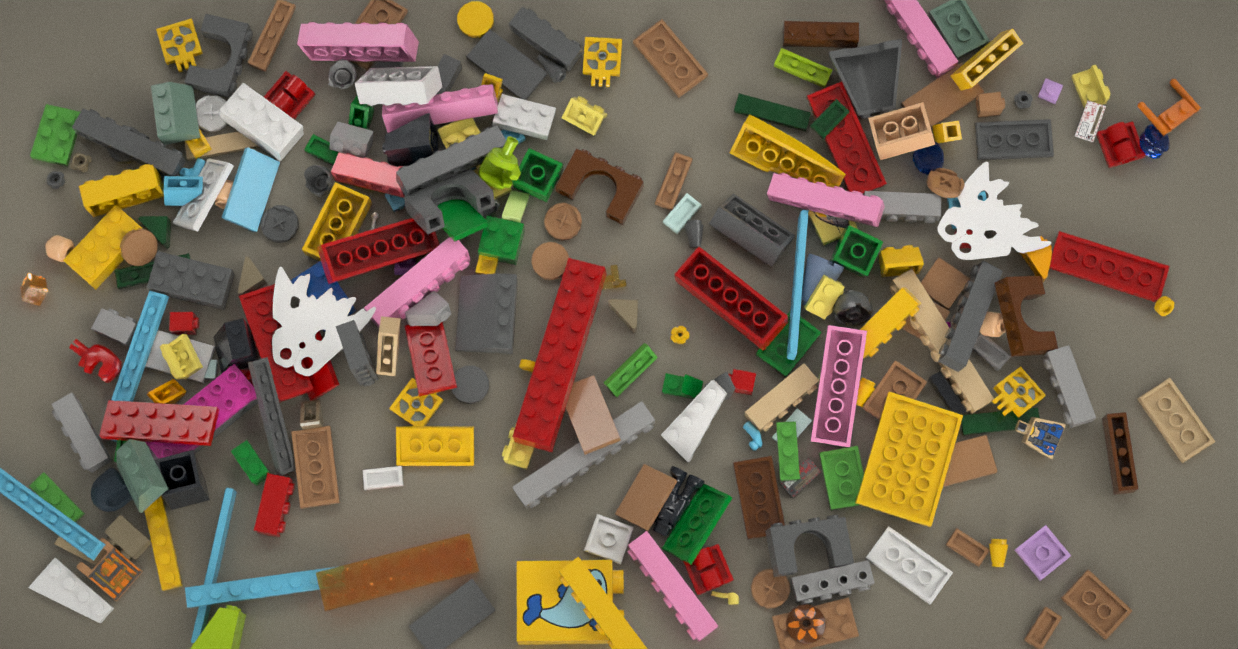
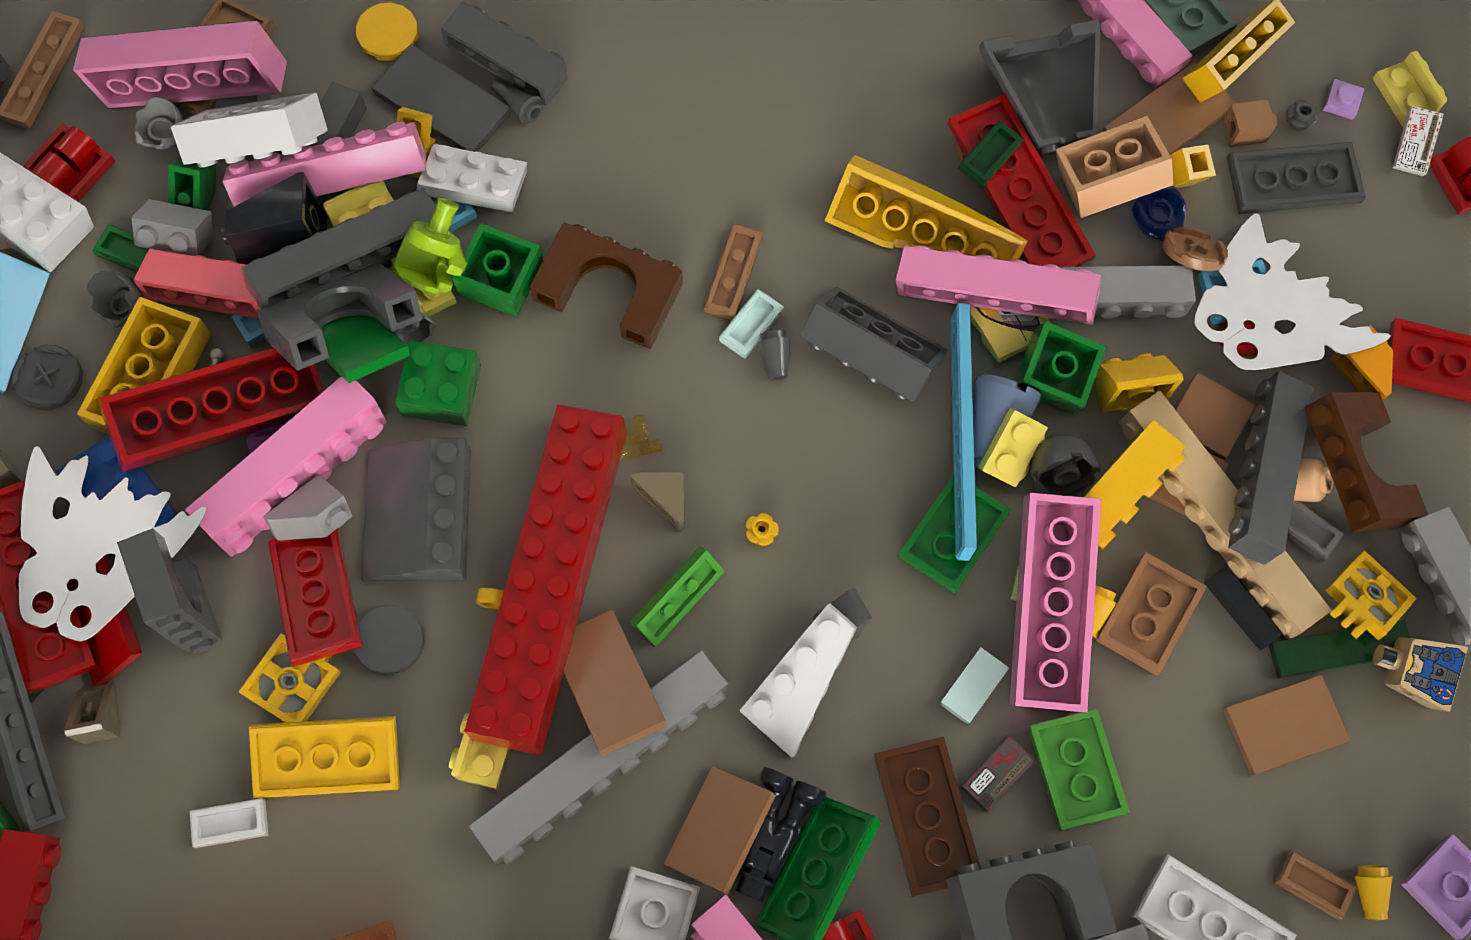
camera: 10 degrees left, 5 degrees down
(315, 467) = (100, 811): medium nougat plate -> none
(388, 346) = (231, 576): tan brick -> none
(486, 265) = (413, 426): yellow plate -> none
(515, 206) = (461, 324): yellowish green tile -> none
(549, 260) = (525, 414): medium nougat tile -> none
(563, 221) = (546, 347): medium nougat tile -> none
(584, 115) = (575, 172): light yellow bracket -> none
(602, 59) = (601, 82): yellow piece -> none
(670, 58) = (715, 77): medium nougat tile -> none
(682, 386) = (771, 620): green slope -> none
(731, 298) = (850, 459): red brick -> none
(743, 381) = (883, 604): red brick -> none
(755, 434) = (910, 698): medium azure arm -> none
(772, 112) = (892, 152): dark green tile -> none
(781, 398) = (952, 630): tan brick -> none
(787, 451) = (972, 727): bright green plate -> none
(803, 68) = (935, 81): lime plate -> none
(820, 34) = (958, 25): reddish brown brick -> none
(909, 459) = (1194, 729): yellow plate -> none

